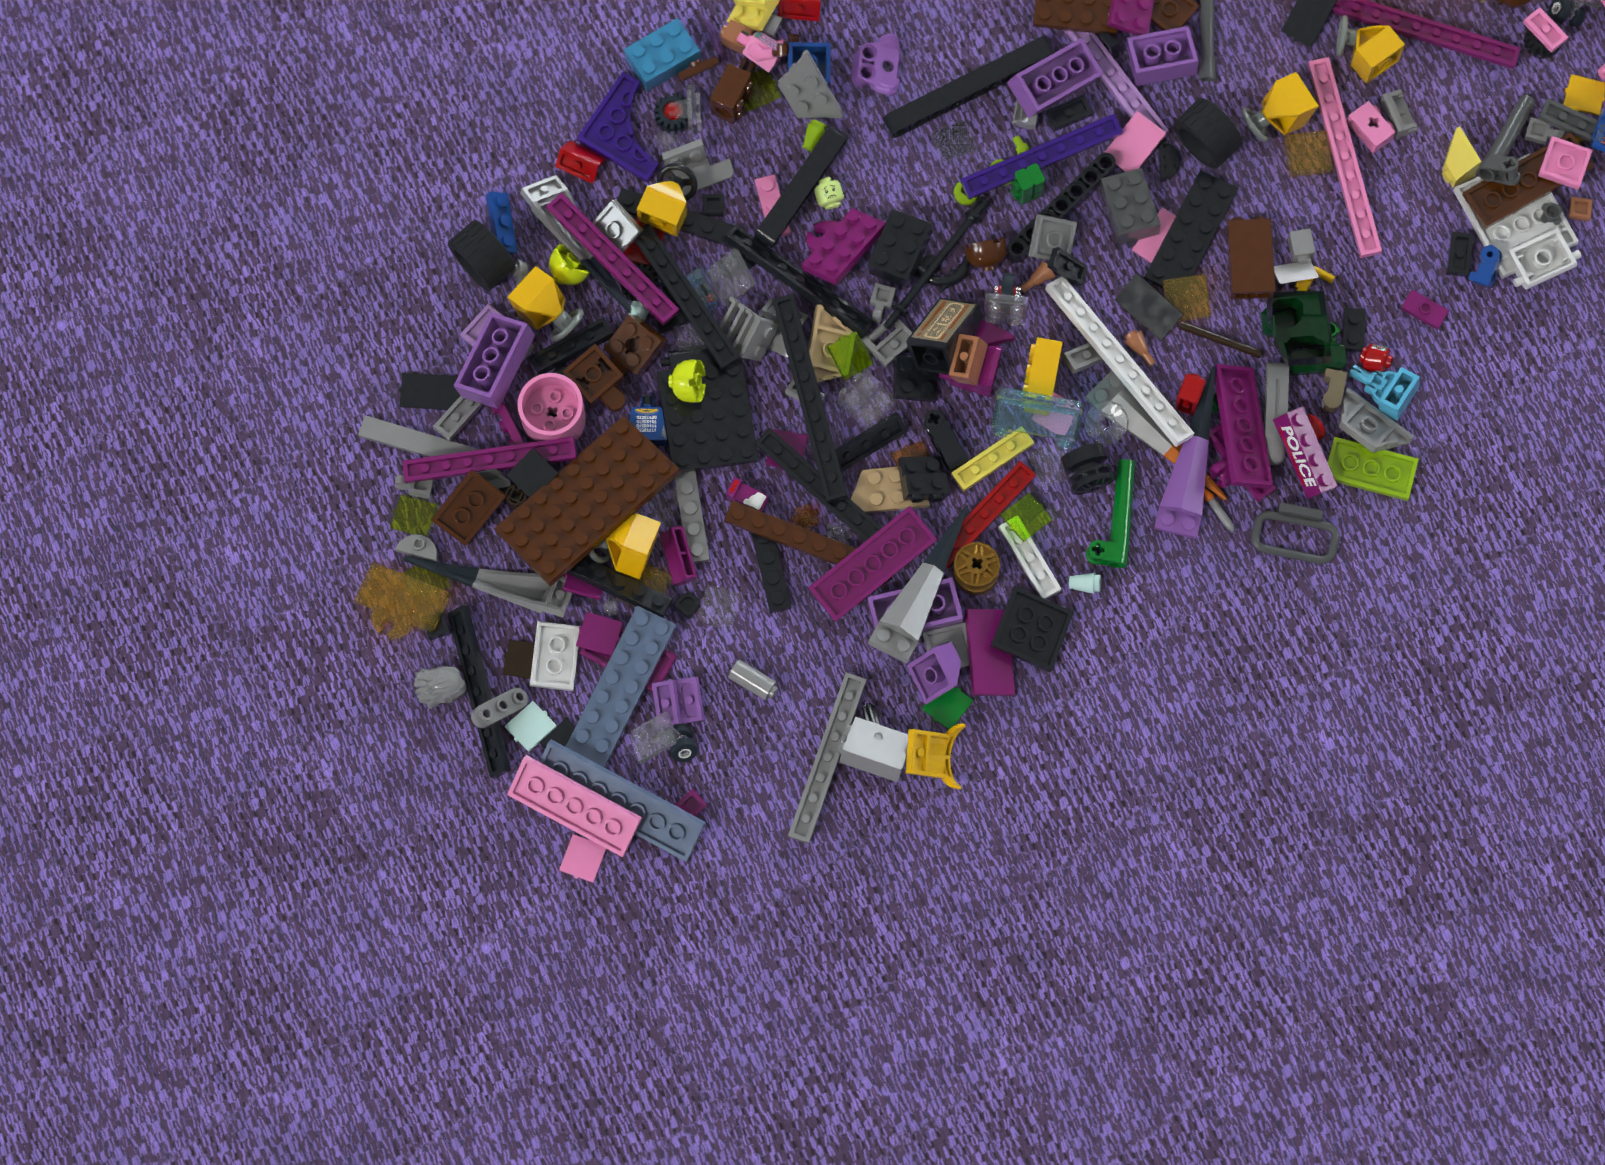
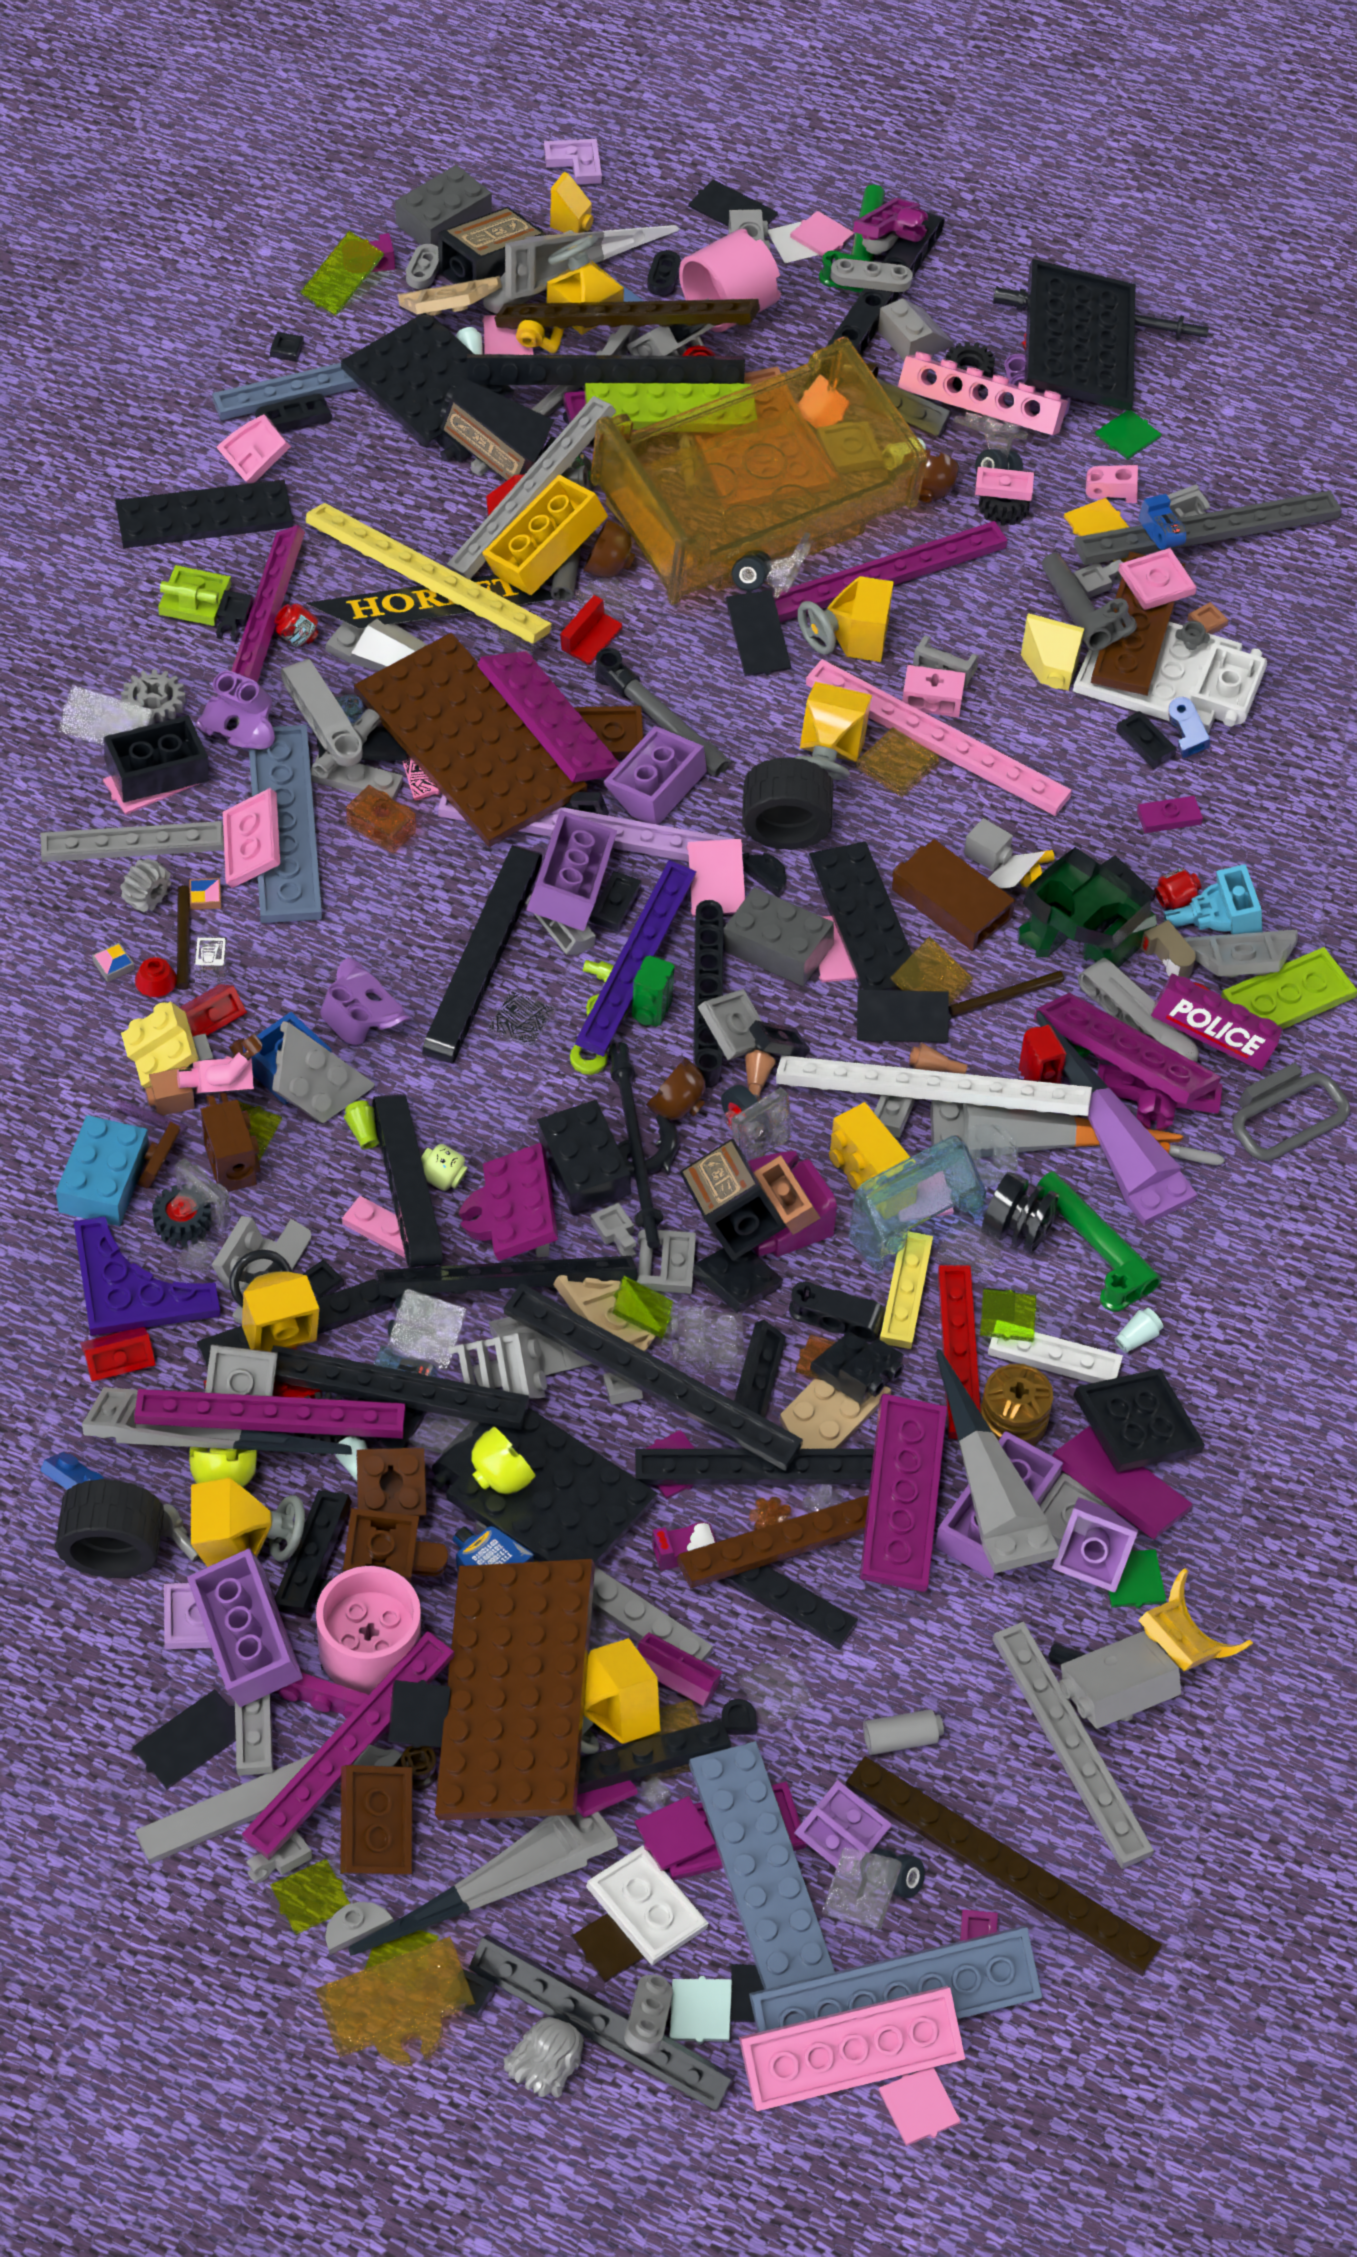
camera: 50 degrees left, 20 degrees down
(735, 785) = (1004, 1866): none -> dark brown plate

